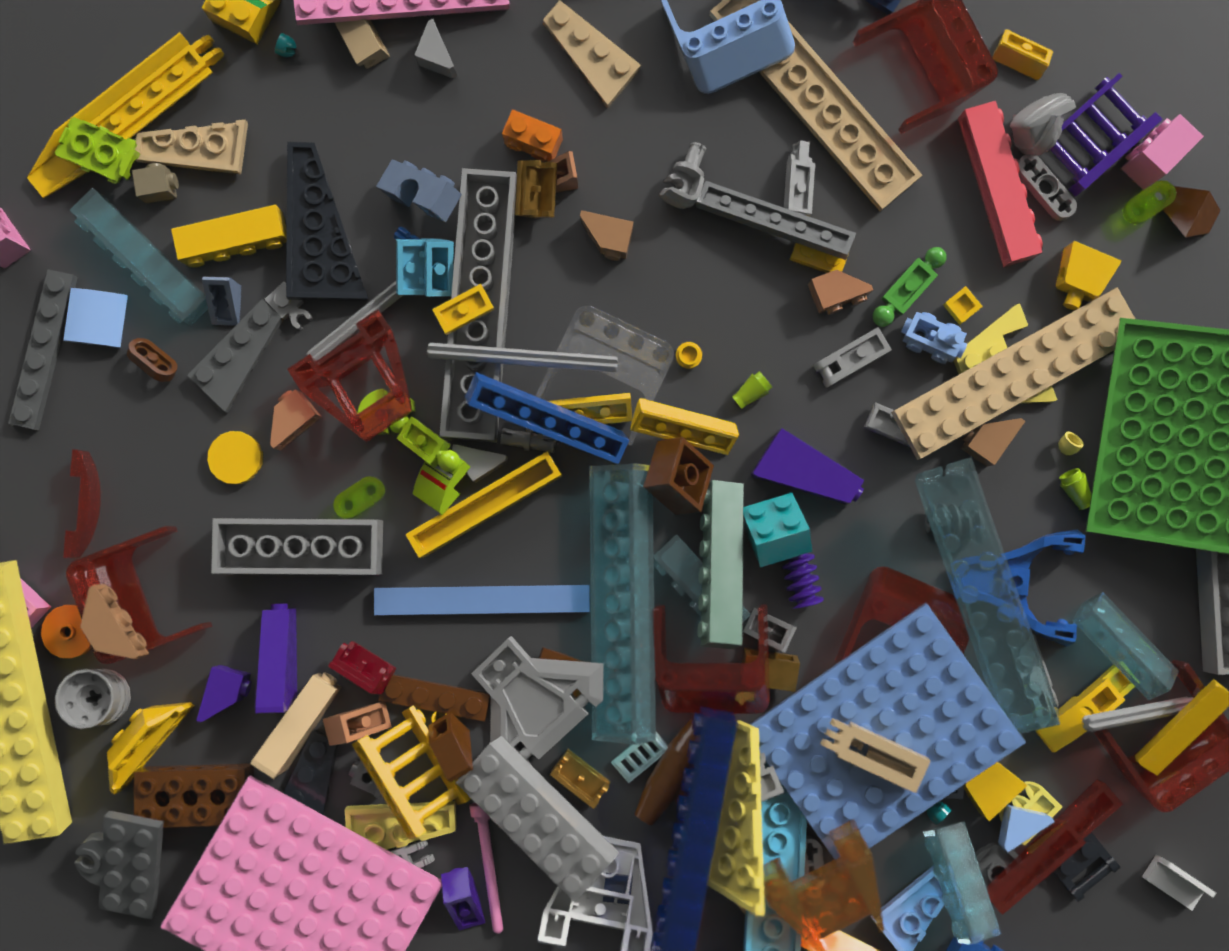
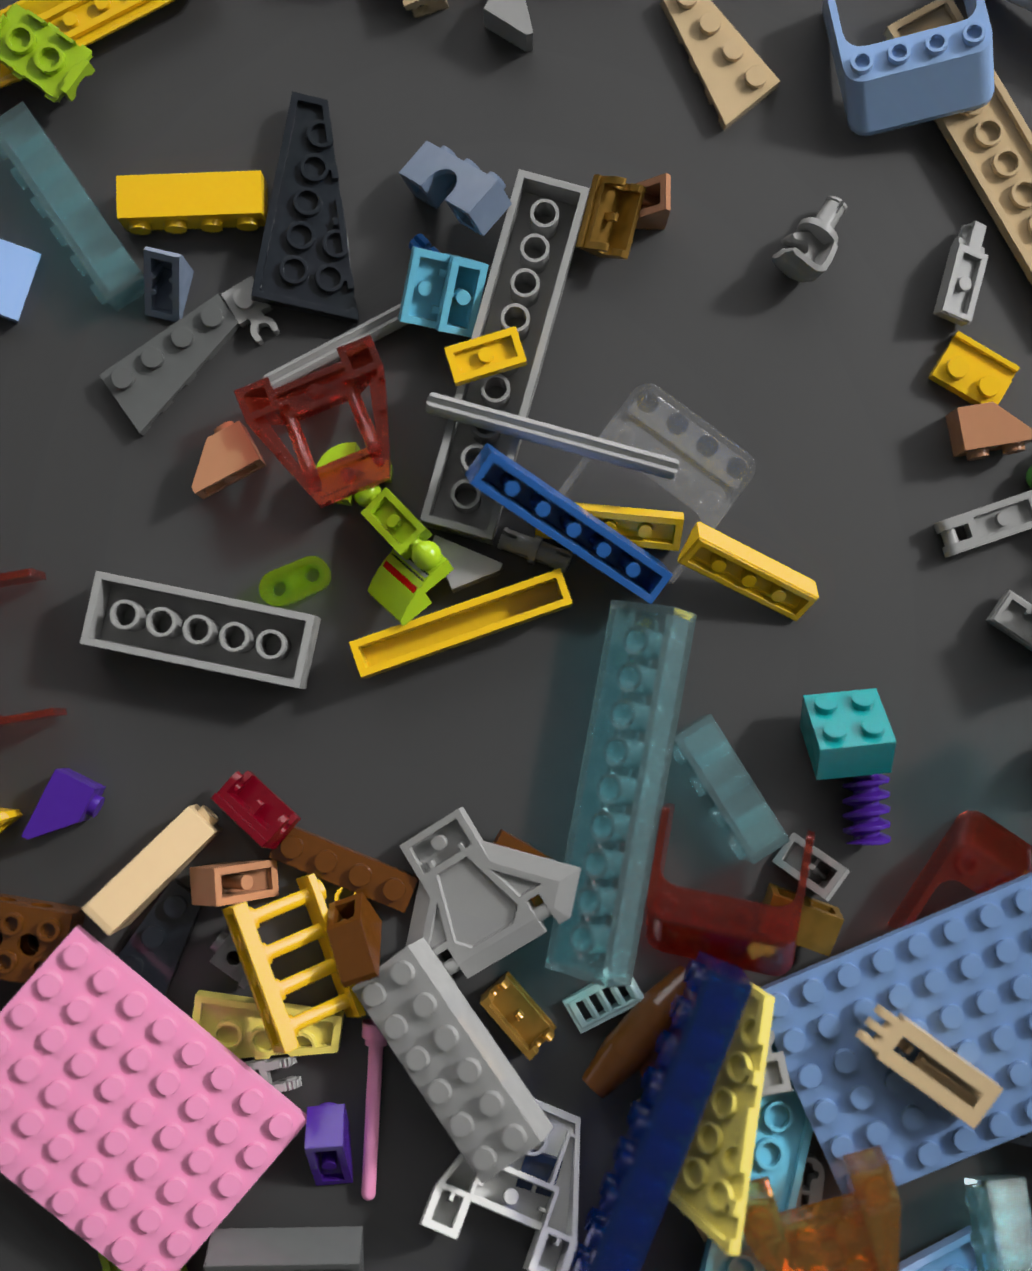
camera: 10 degrees right, 0 degrees up
(152, 359) = (56, 345): reddish brown plate -> none
(155, 183) = (106, 113): dark tan brick -> none
(202, 148) = (181, 80): tan wing -> none
(235, 457) = (141, 496): yellow tile -> none
(277, 660) = (144, 777): dark purple slope -> none
(481, 599) = (432, 750): medium blue tile -> none
(532, 136) = (618, 146): orange brick -> none
(608, 234) = (694, 295): medium nougat slope -> none
(678, 476) = (730, 636): reddish brown brick -> none
(688, 355) = (770, 478): yellow plate -> none
(721, 566) = (765, 768): sand green brick -> none
(752, 390) = (847, 541): lime cone -> none
(775, 220) = (923, 321): dark grey plate -> none
(805, 469) = (897, 659): dark purple slope -> none
(938, 812) = (990, 1158): teal hinge -> none

